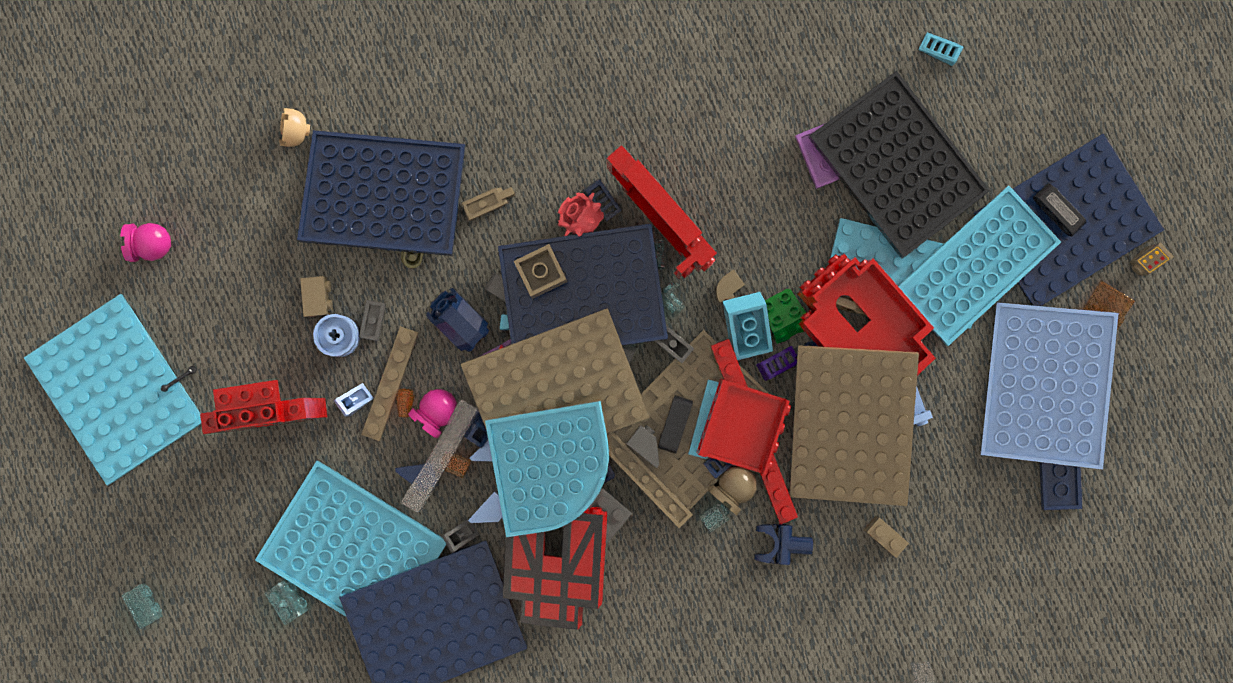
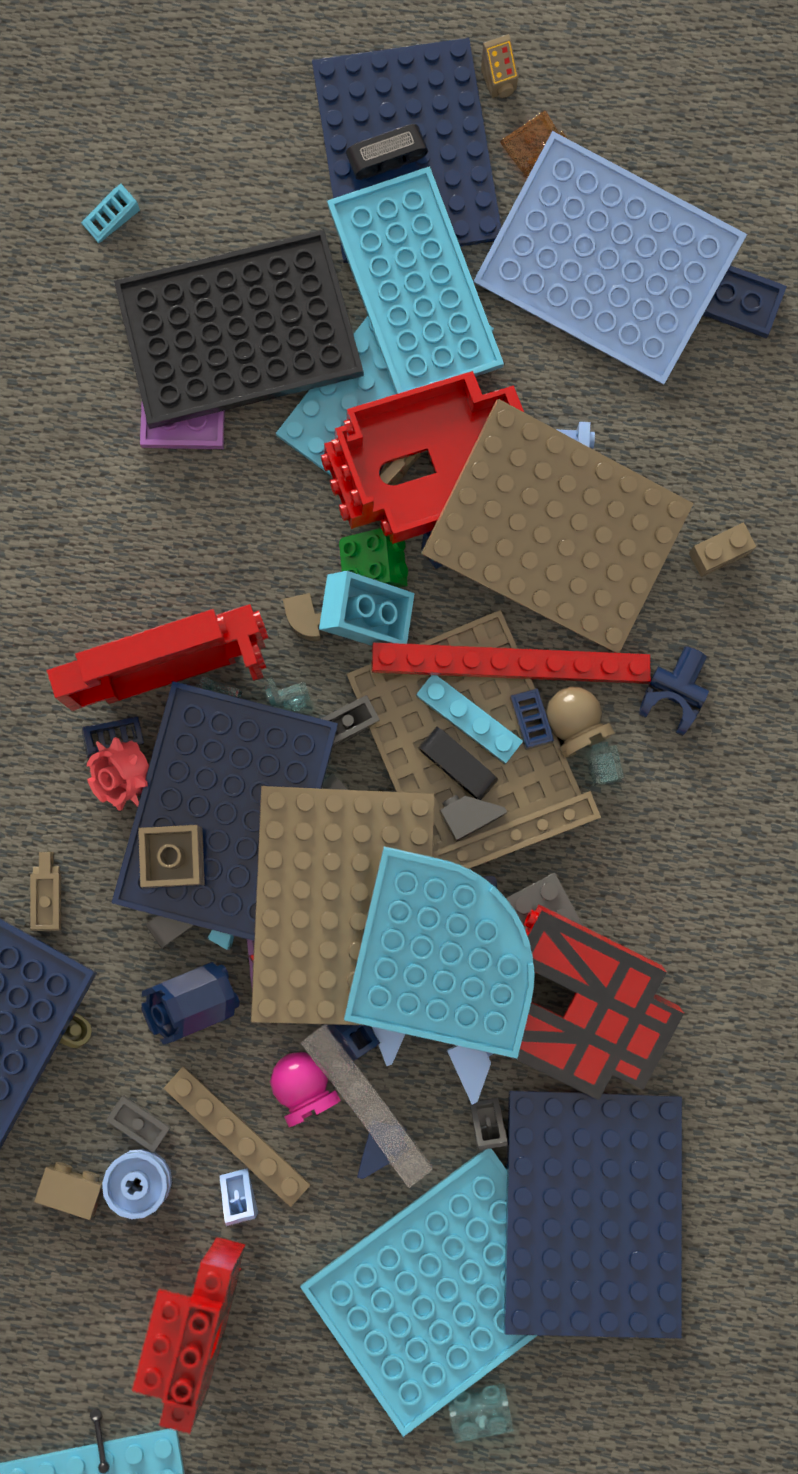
camera: 65 degrees left, 5 degrees down
(404, 401) = (270, 1125): clear orange cone -> none
(458, 465) = (390, 1086): clear orange brick -> none
(743, 426) = (499, 672): red panel -> none
(764, 369) = (439, 611): dark purple slope -> none

